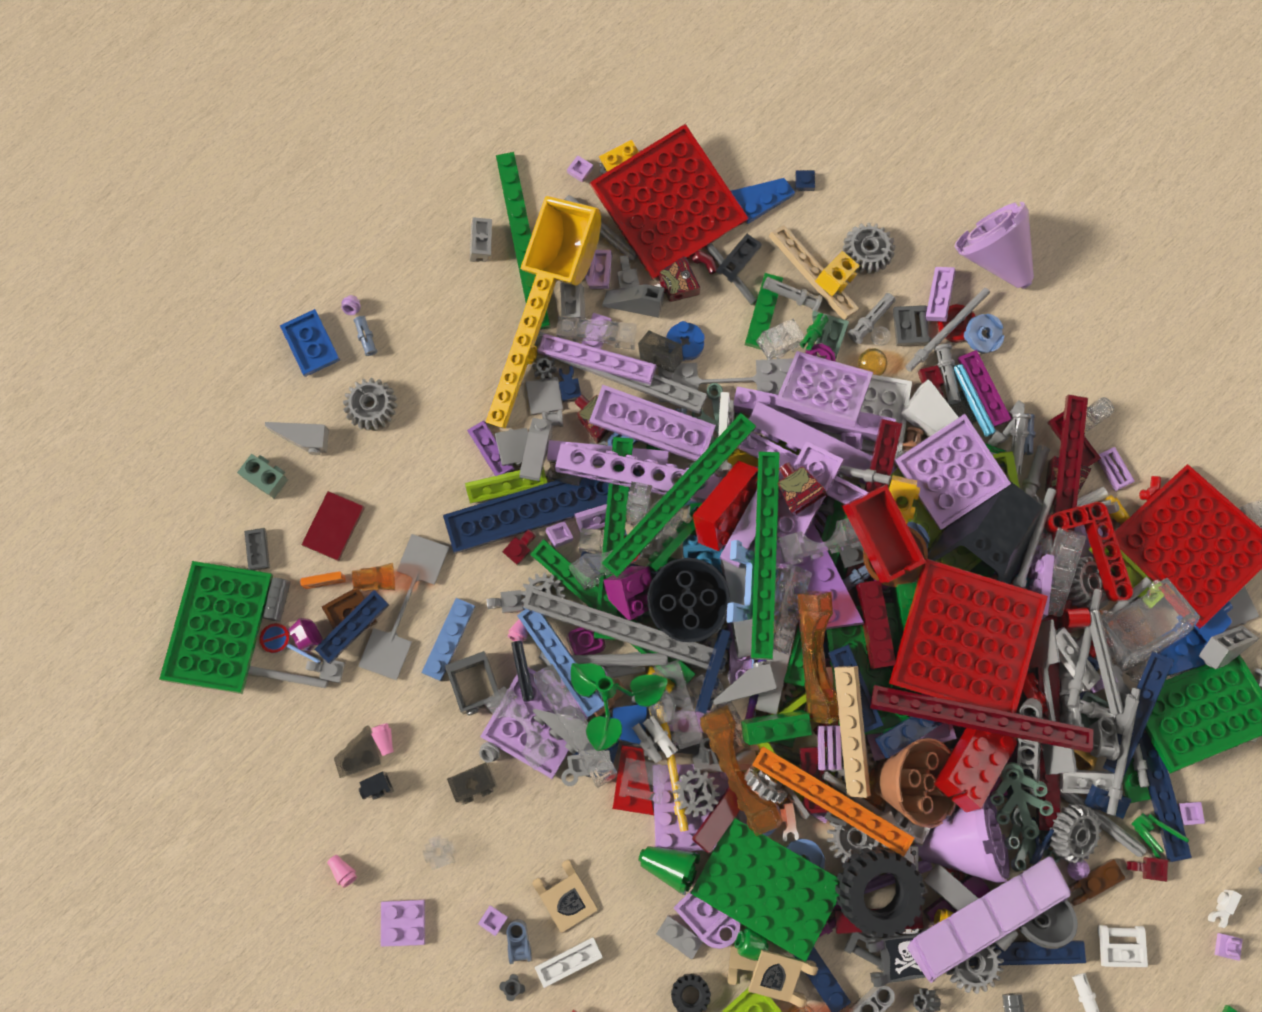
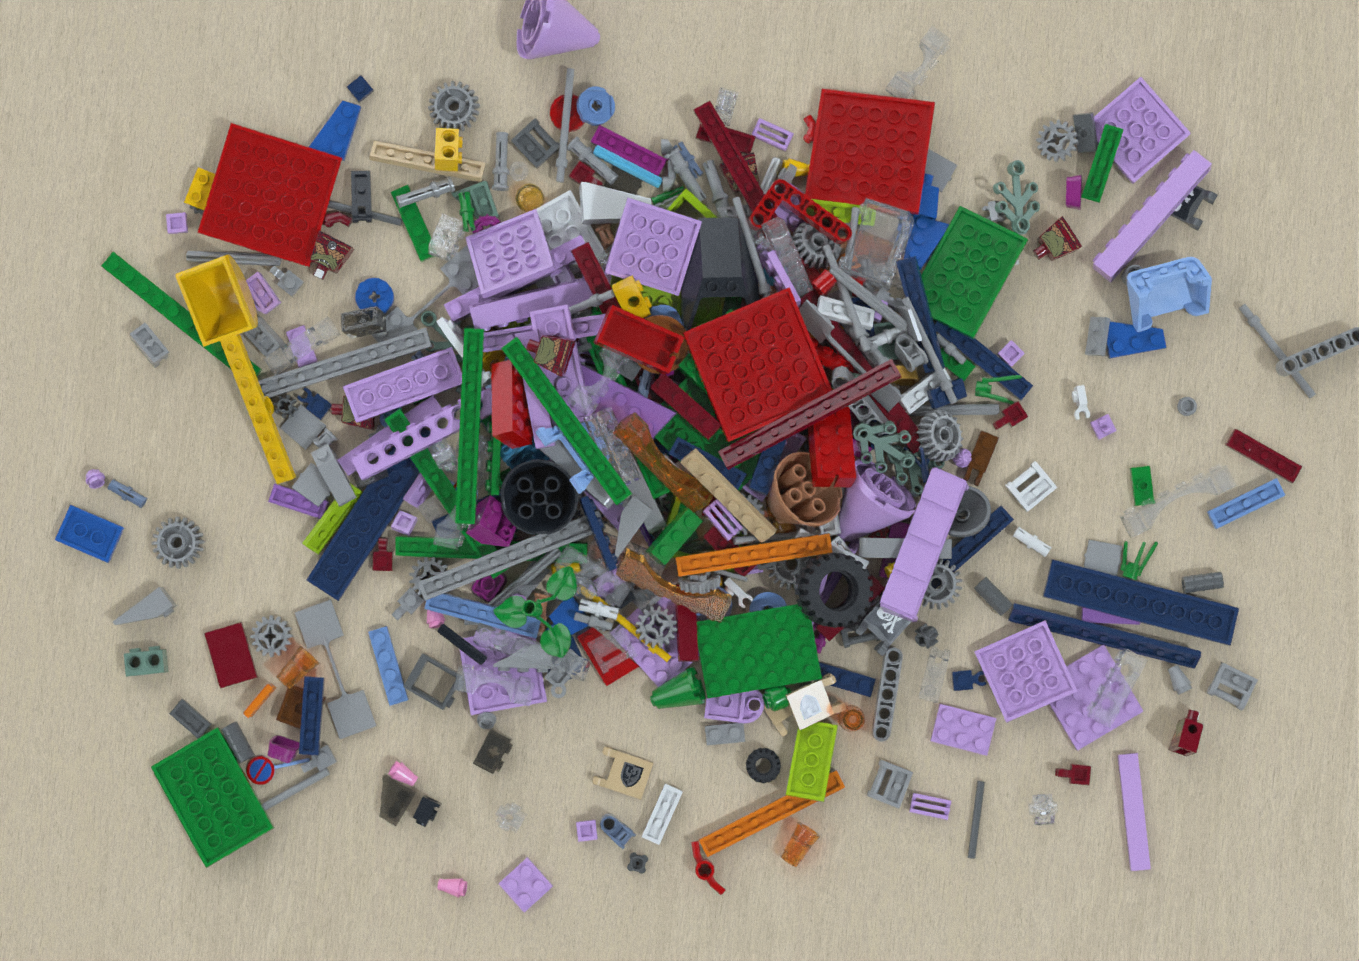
camera: 40 degrees left, 10 degrees up
(372, 543) = (271, 643): none -> light grey gear
(597, 359) = (320, 367): lavender tile -> none
(636, 299) = (310, 295): dark grey slope -> none
(940, 294) = (538, 100): lavender plate -> none
(1227, 646) = (948, 209): light grey slope -> none

